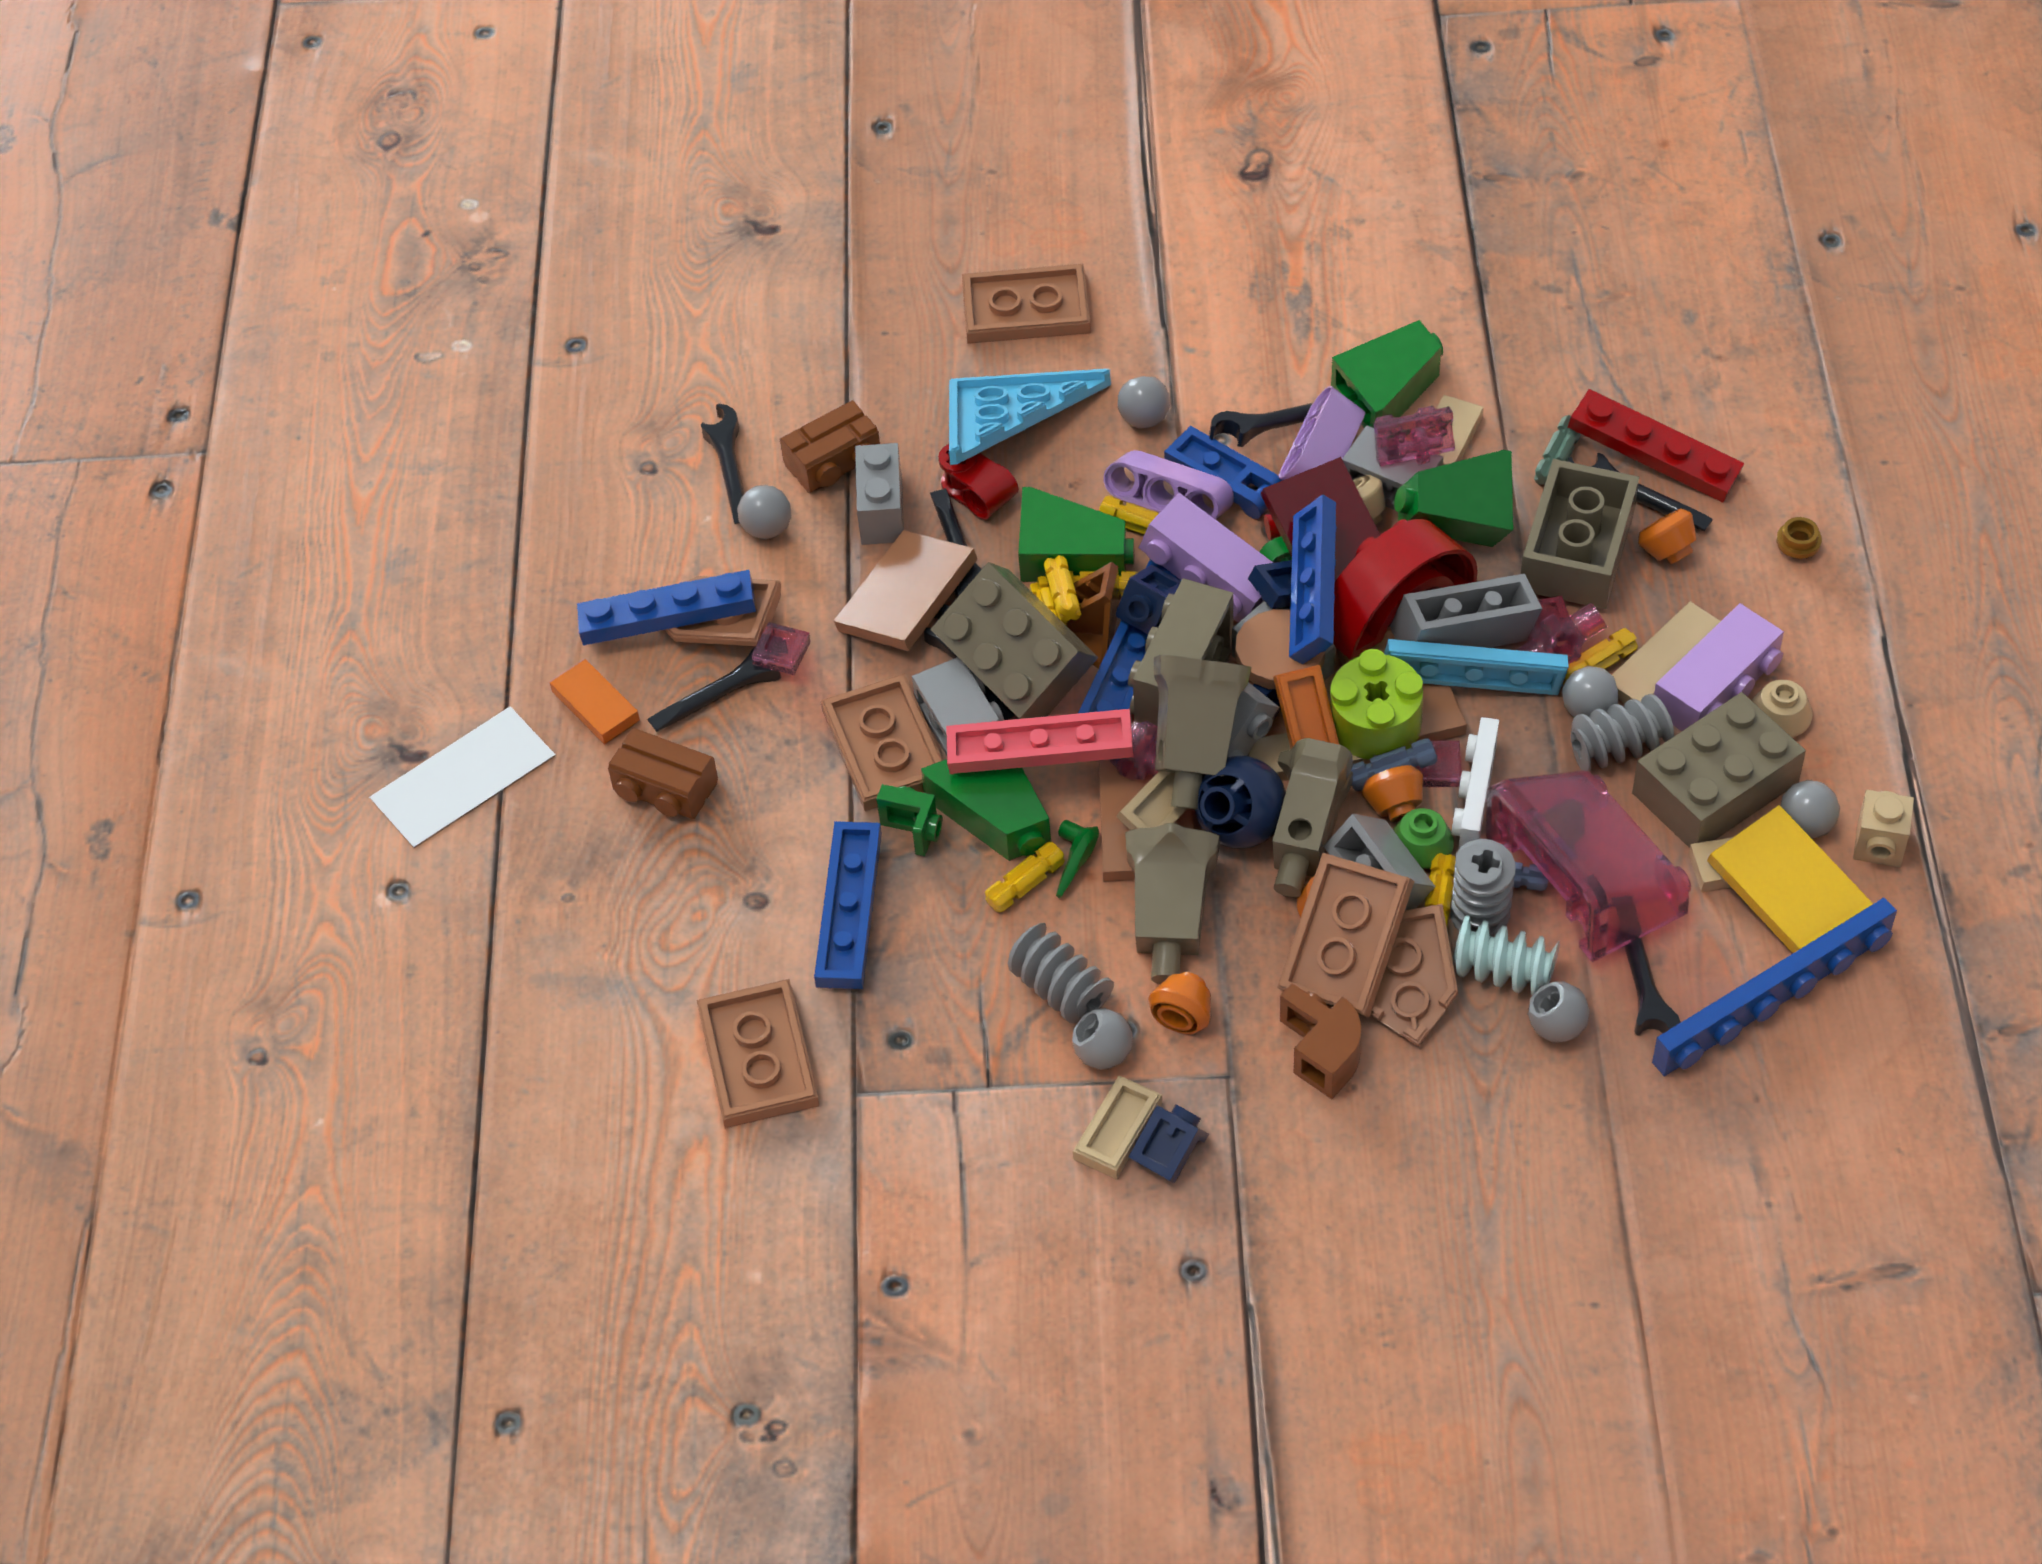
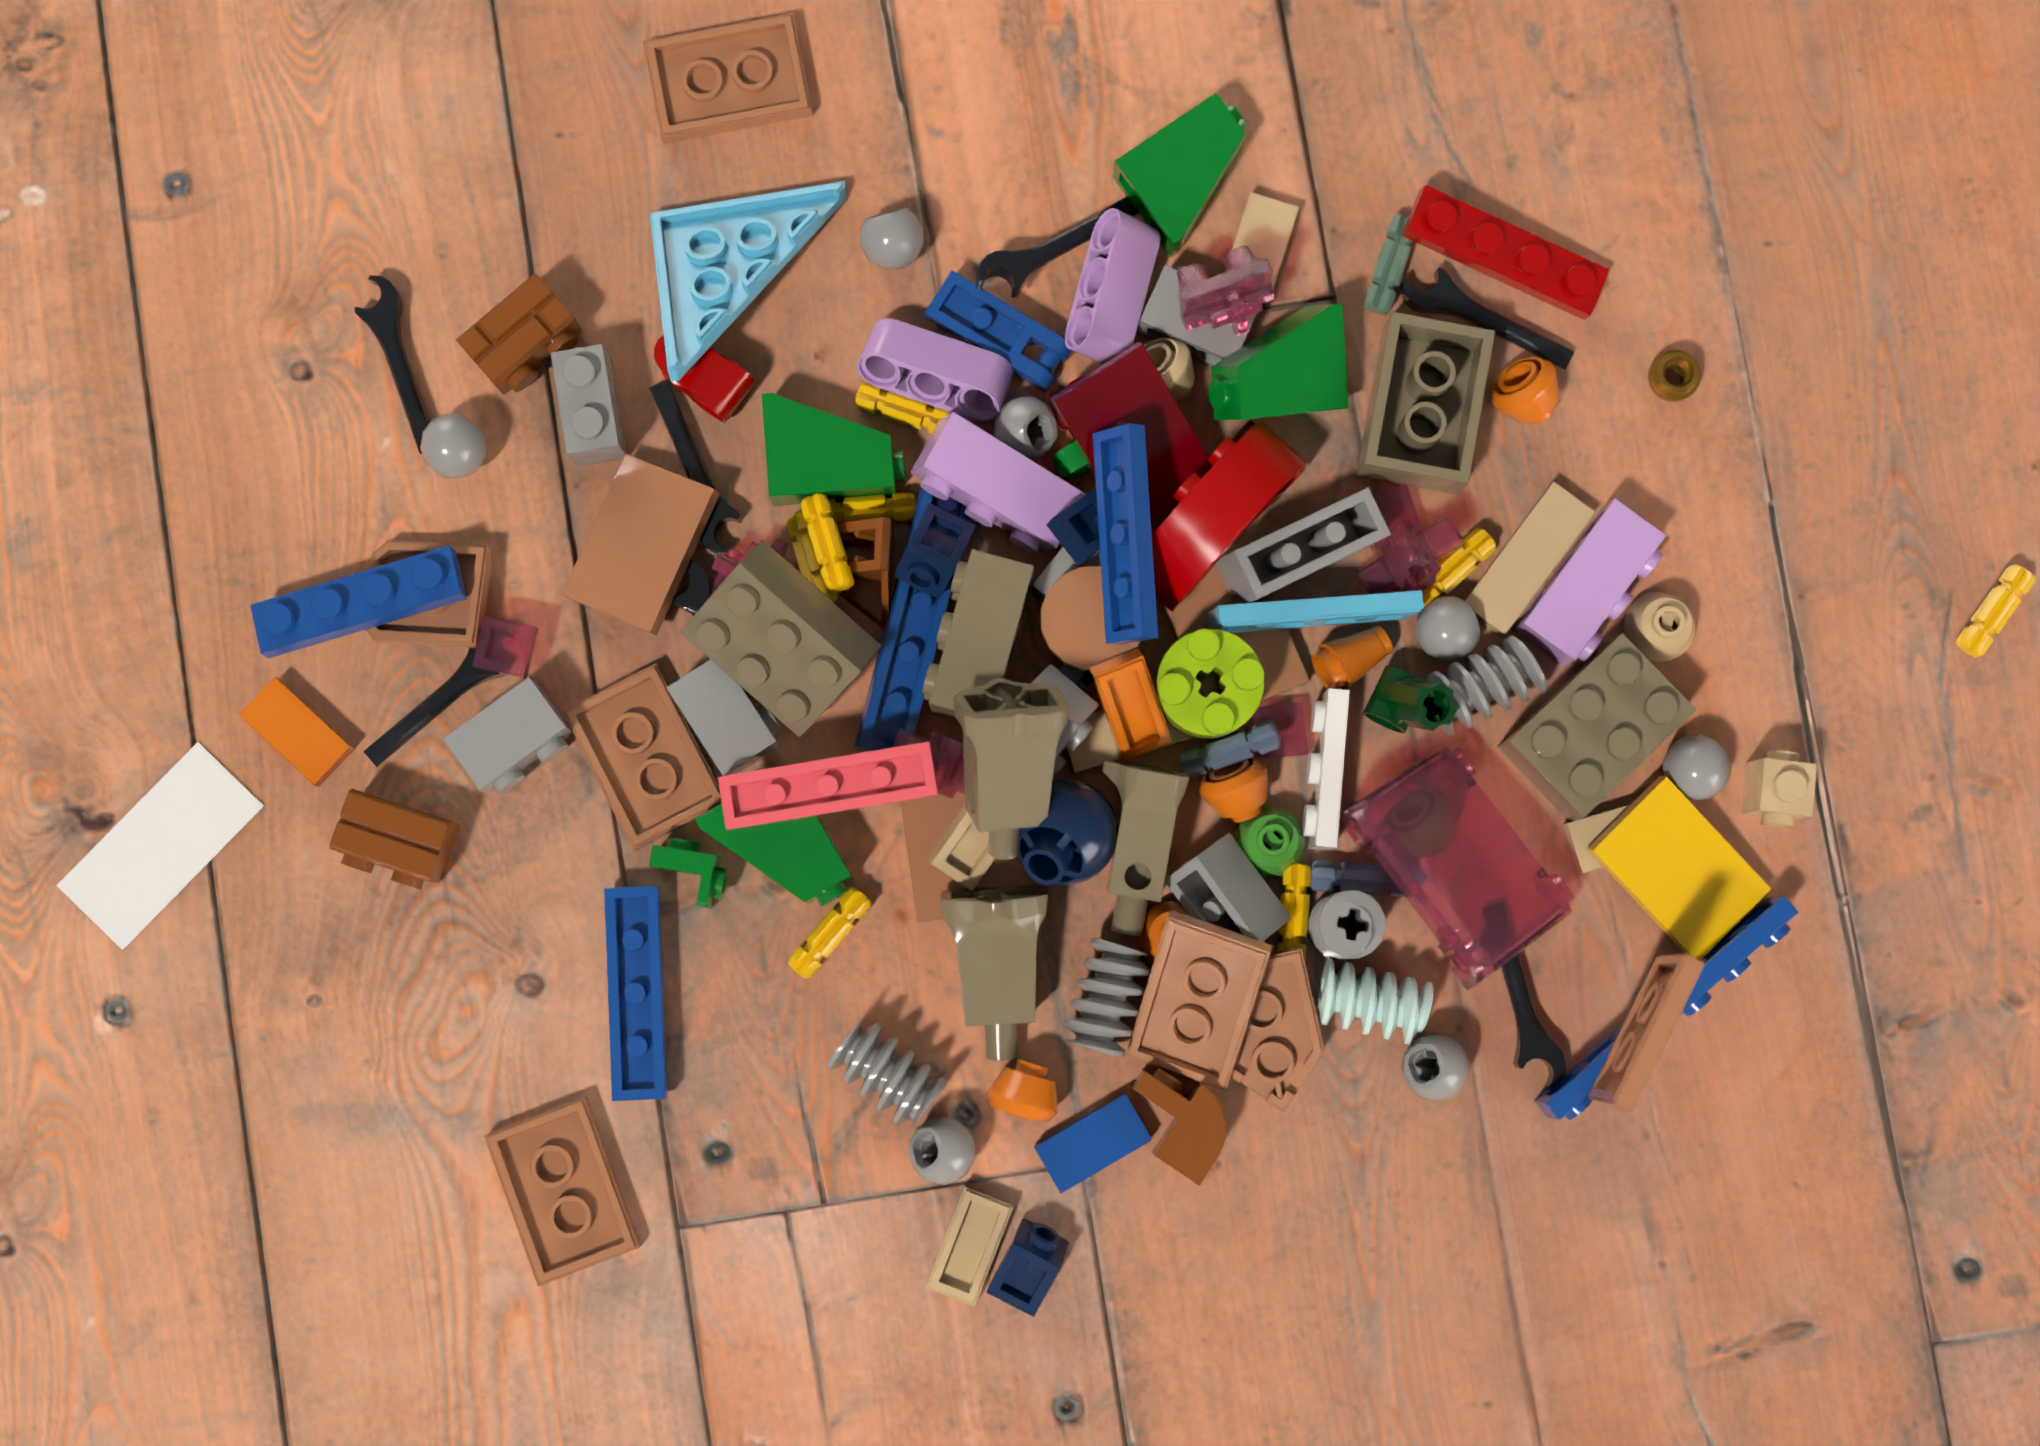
camera: 15 degrees left, 30 degrees up
(773, 710) = (509, 737): none -> light grey brick
(1082, 847) = (892, 880): green bar -> none
(1240, 1054) = (1092, 1143): none -> blue tile
(1244, 523) = (1026, 426): none -> light grey piece
(1264, 932) = (1107, 997): none -> light grey piece
(1508, 707) = (1350, 657): none -> orange cone
(1550, 734) = (1409, 701): none -> dark green piece
(1745, 961) = (1645, 1031): none -> nougat tile

